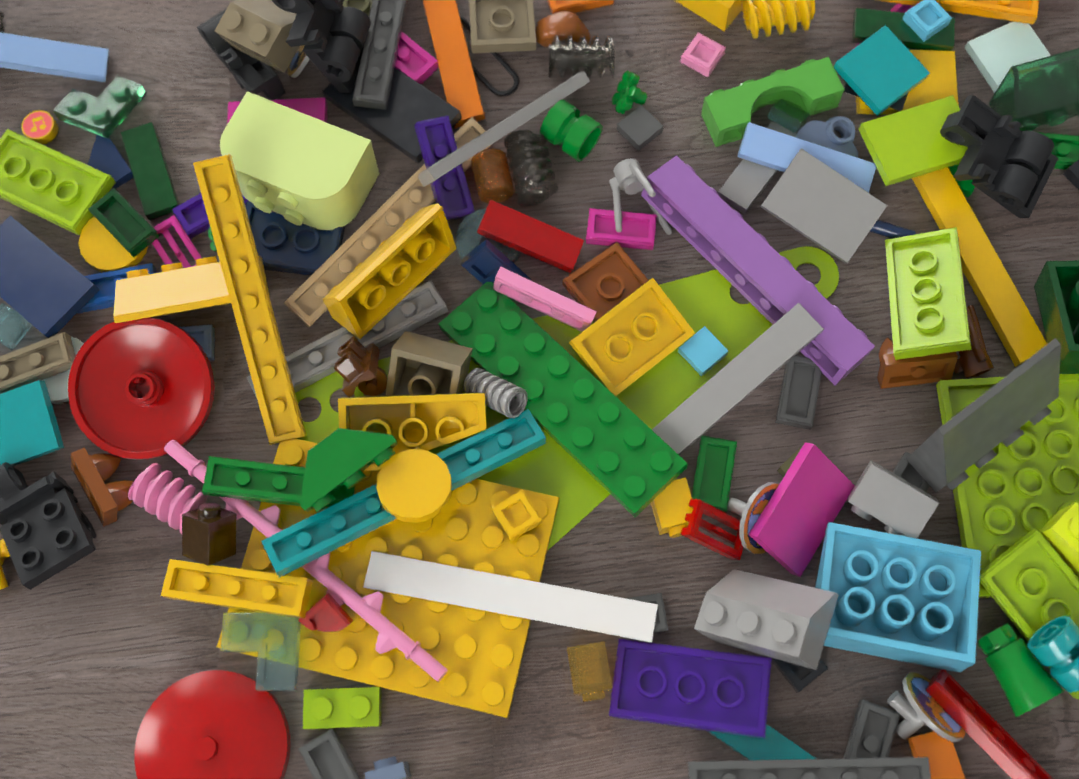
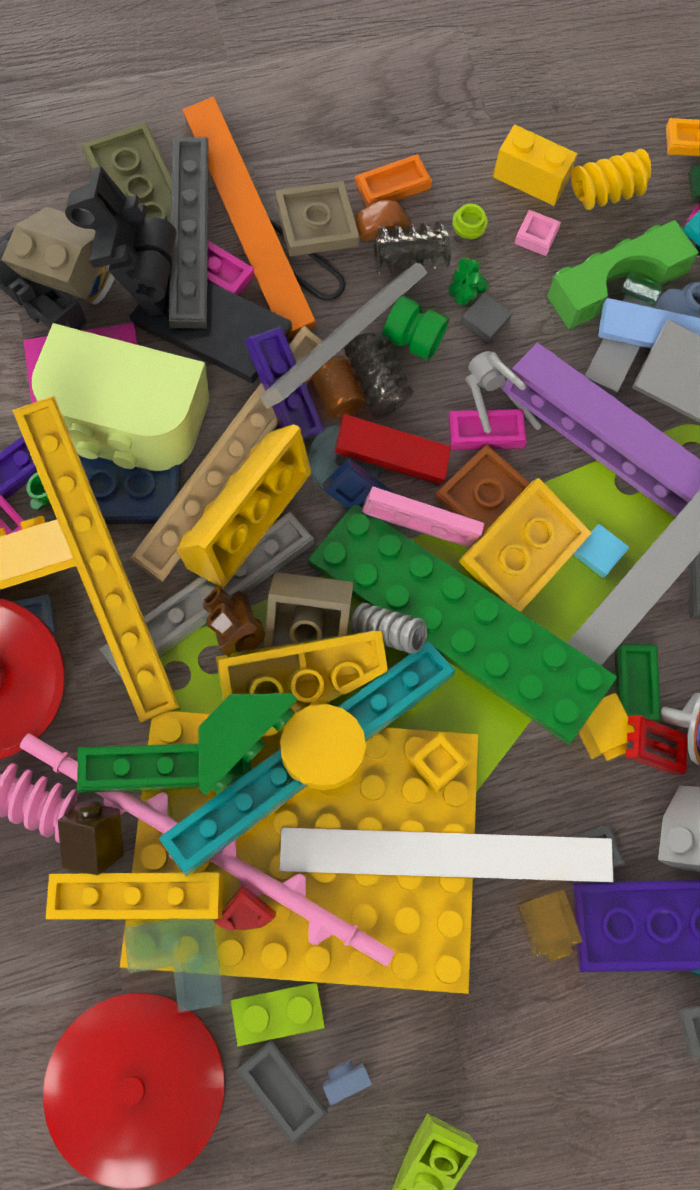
camera: 20 degrees left, 0 degrees up
(641, 38) = (470, 221): none -> lime plate

